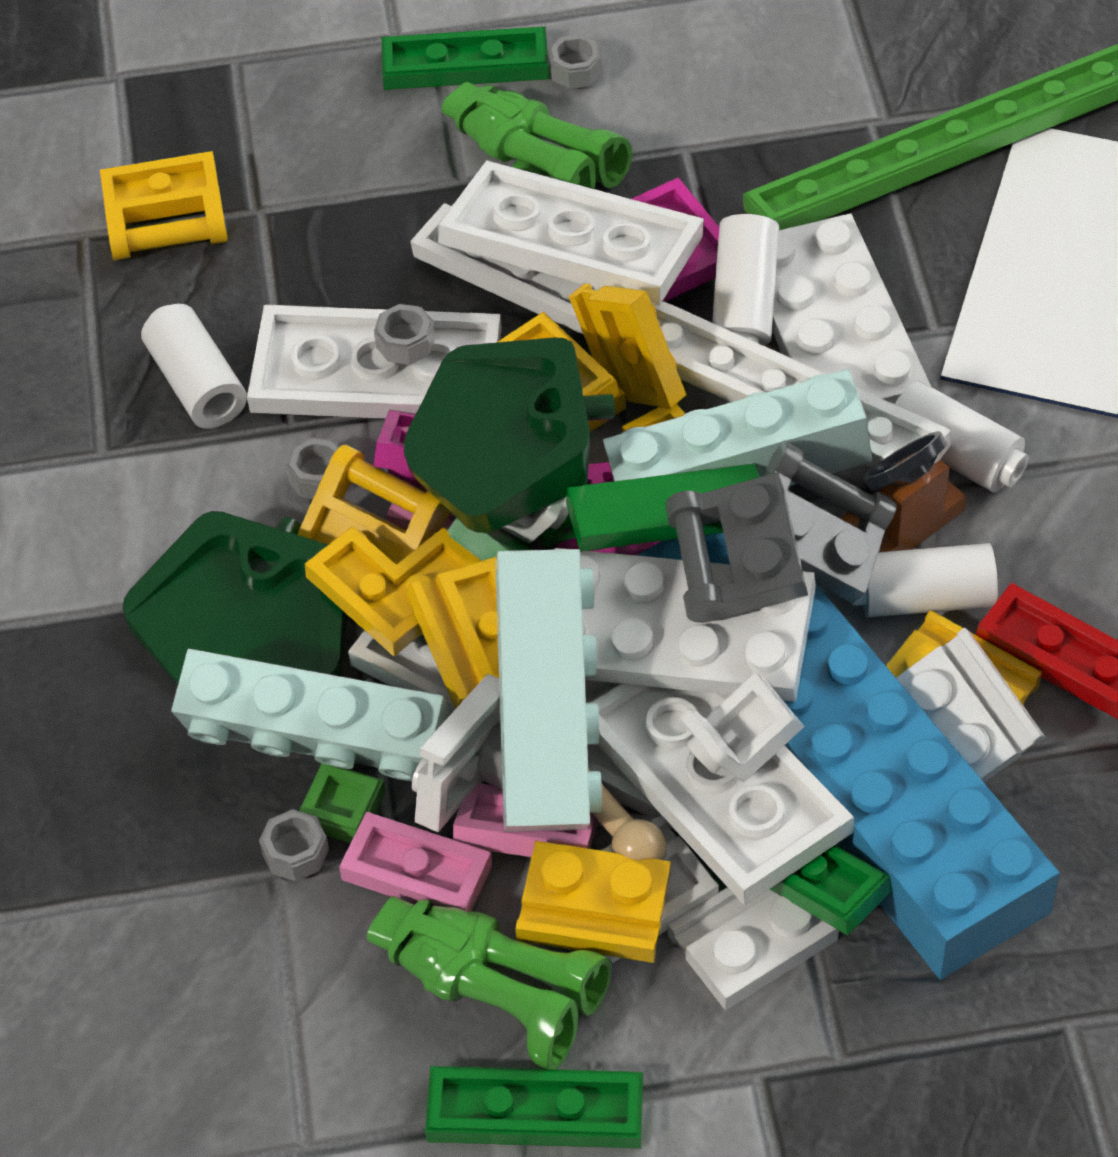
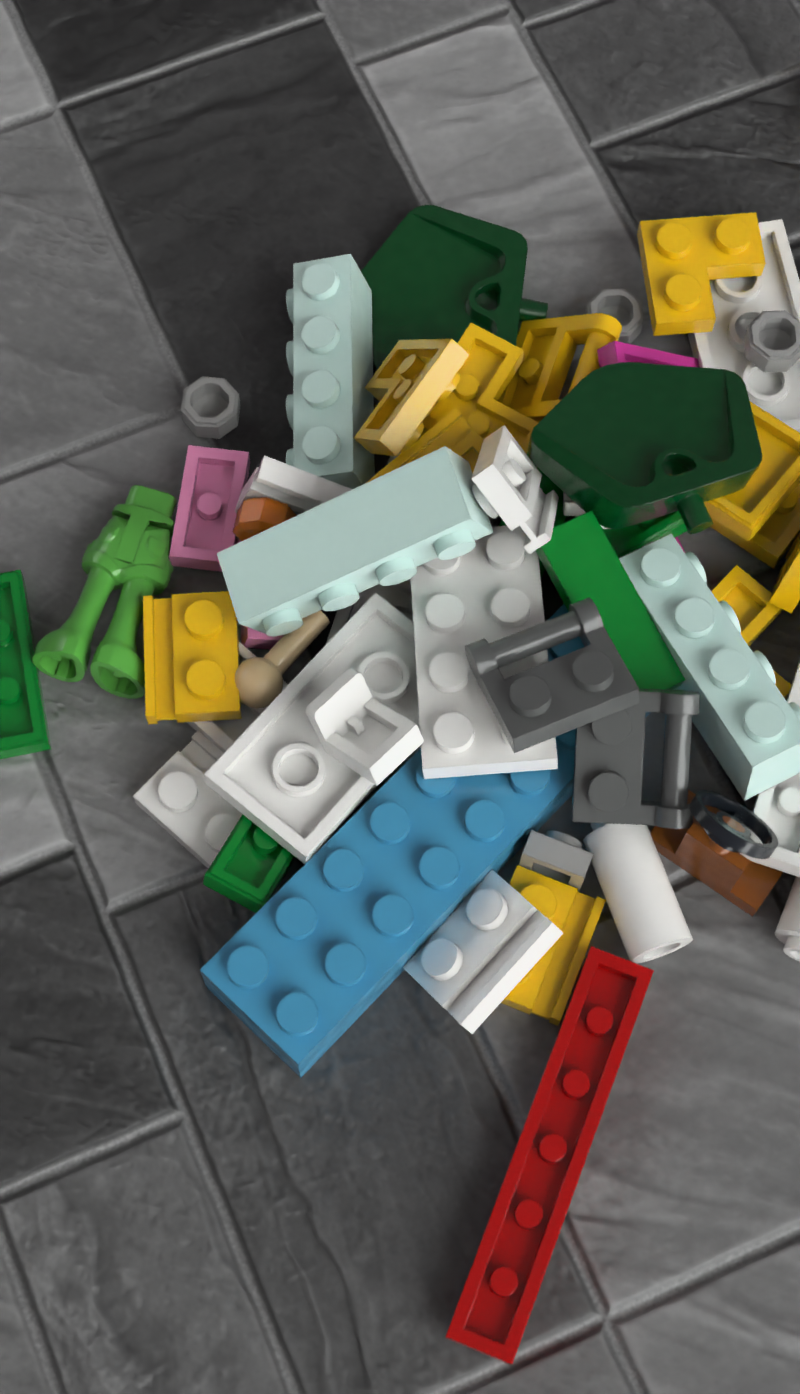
camera: 70 degrees right, 15 degrees up
(193, 366) = (699, 177): white brick -> none
(285, 389) = (683, 257): none -> yellow plate
(342, 799) = (263, 431): bright green tile -> none
(372, 610) = (408, 387): none -> yellow plate
(473, 793) = (259, 515): none -> orange tile
(533, 532) = (510, 488): none -> white plate
(889, 628) = (556, 857): none -> light grey plate

